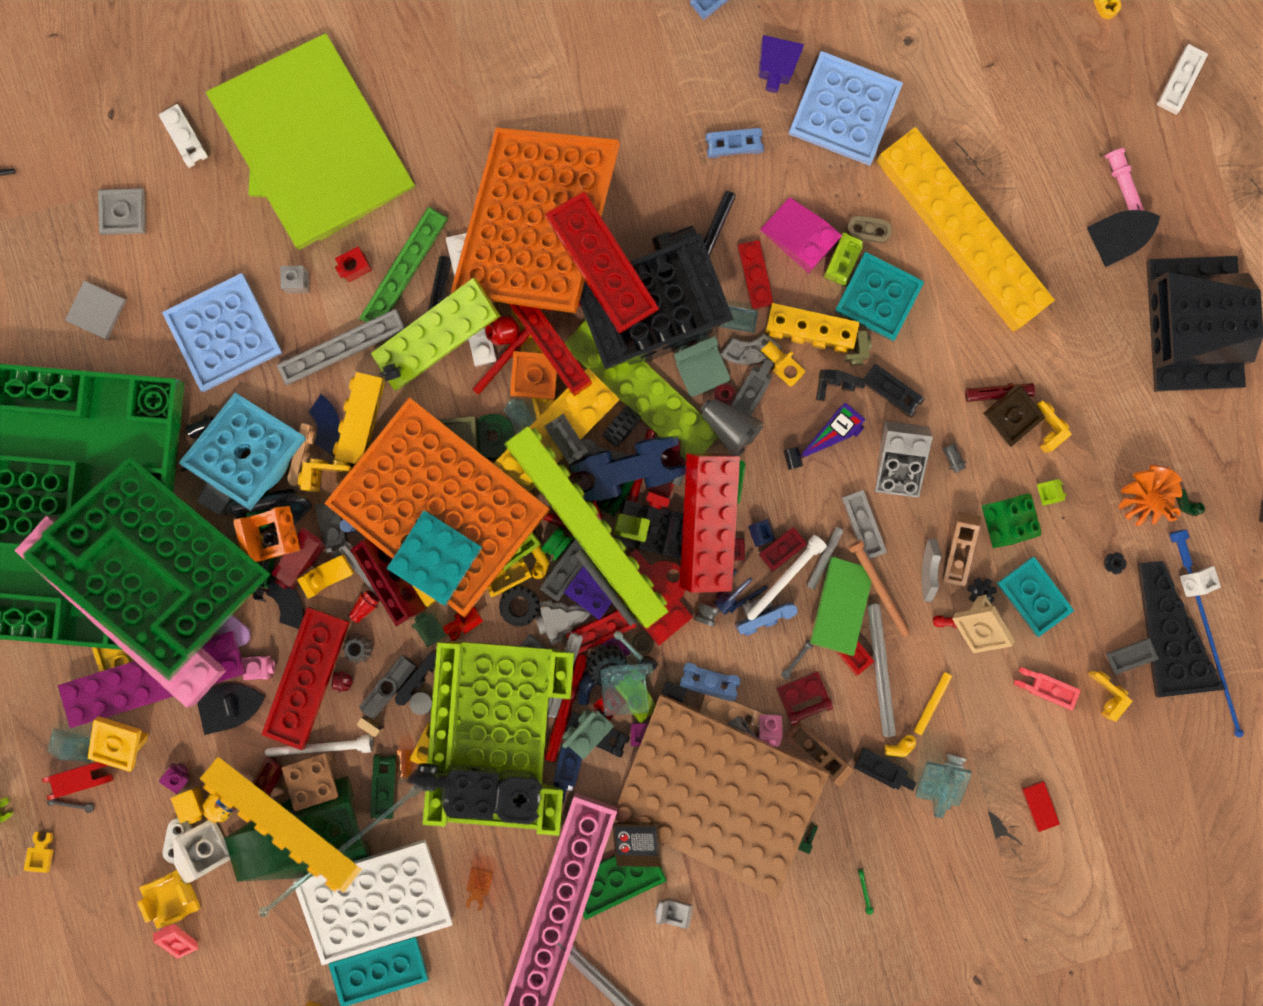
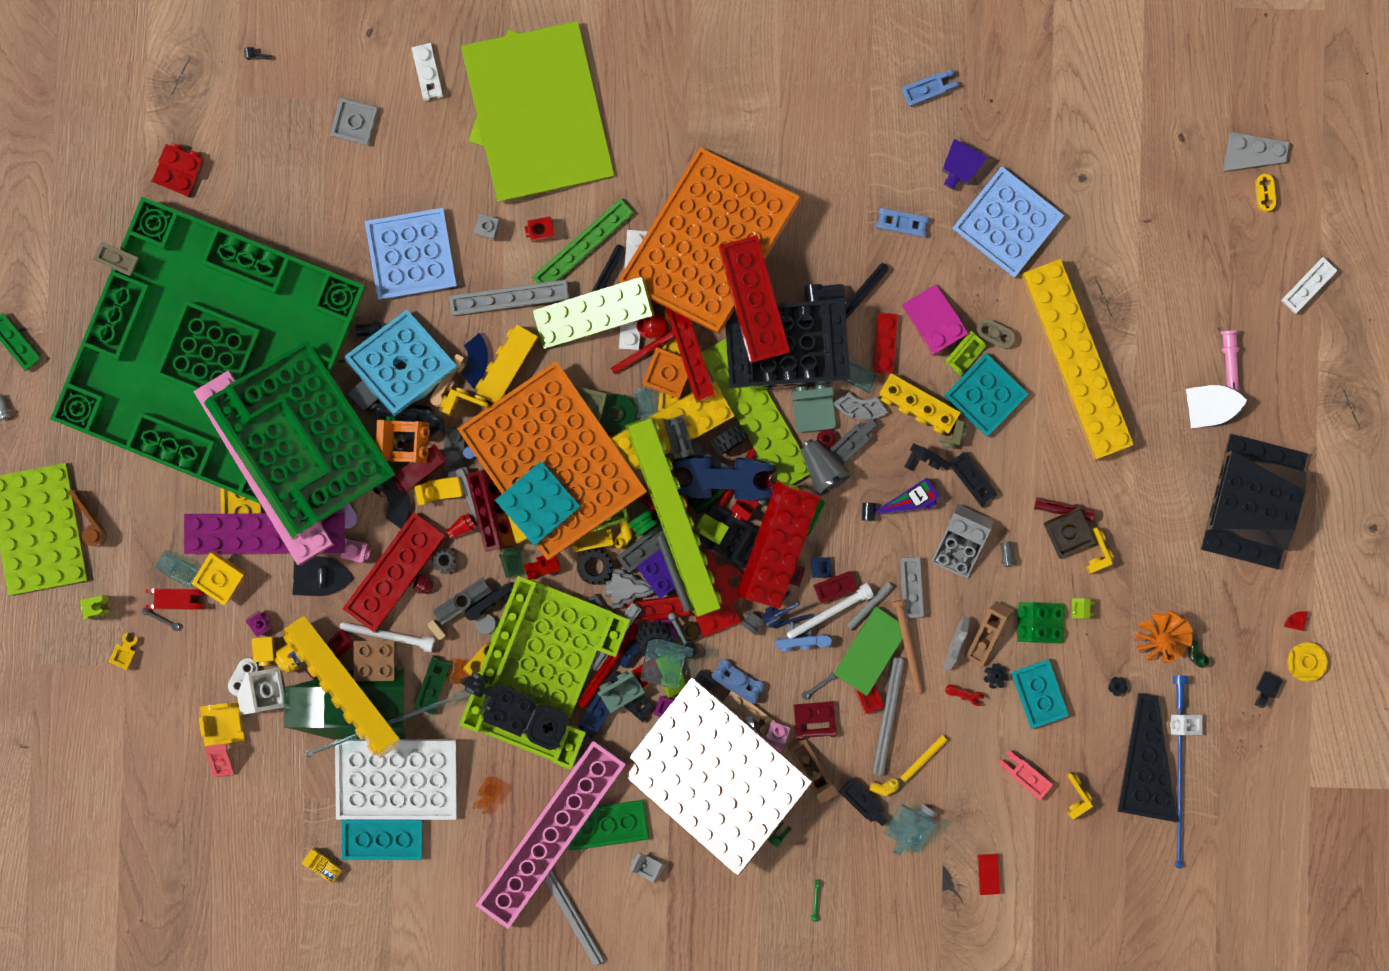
camera: 20 degrees right, 0 degrees up
(95, 310) = (307, 200): light grey tile -> none
(390, 372) = (546, 333): black plate -> none
(637, 844) = (634, 798): slope -> none
(781, 362) = (883, 426): yellow bracket -> none
(983, 627) = (985, 704): tan bracket -> none
(1132, 656) = (1106, 769): dark grey tile -> none

